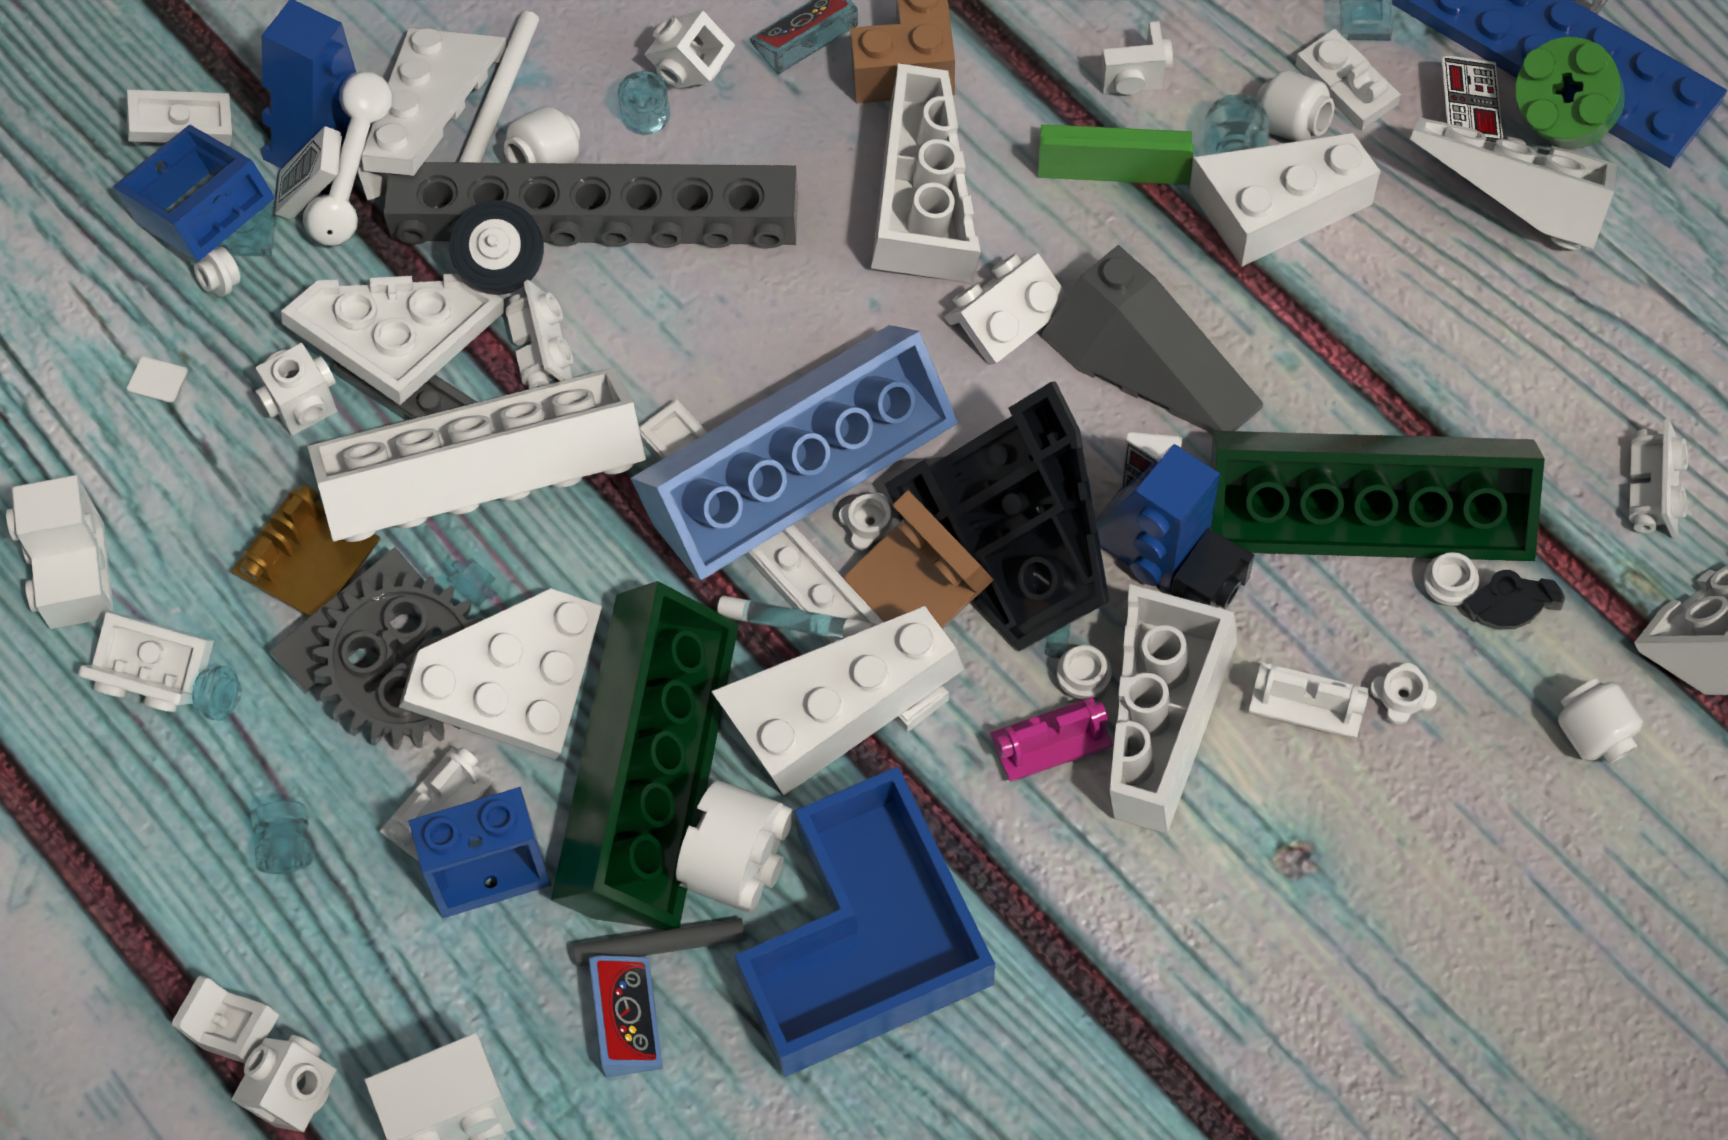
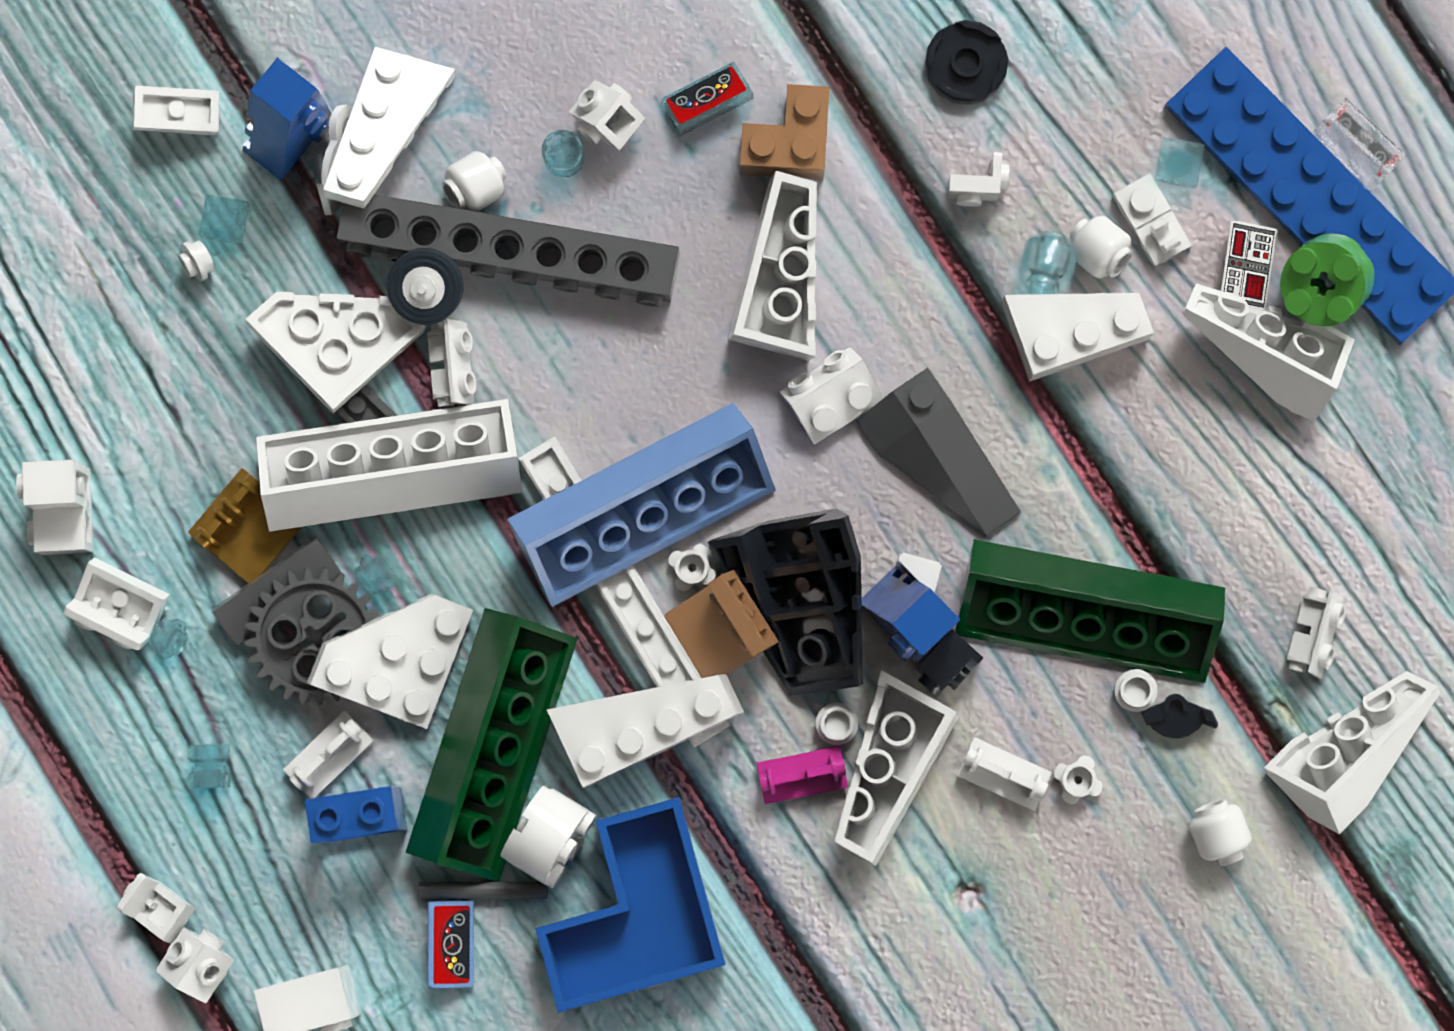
camera: 10 degrees right, 20 degrees up
(157, 379) = (141, 346): white sticker -> none
(211, 211) = (202, 217): blue window -> none
(296, 388) = (262, 394): white brick -> none
(308, 172) = (278, 187): white tile -> none
(365, 100) = (331, 145): white piece -> none
(500, 88) = (442, 122): white bar -> none
(790, 618) = (621, 648): clear light blue bar -> none
(1115, 154) = (945, 262): bright green panel -> none

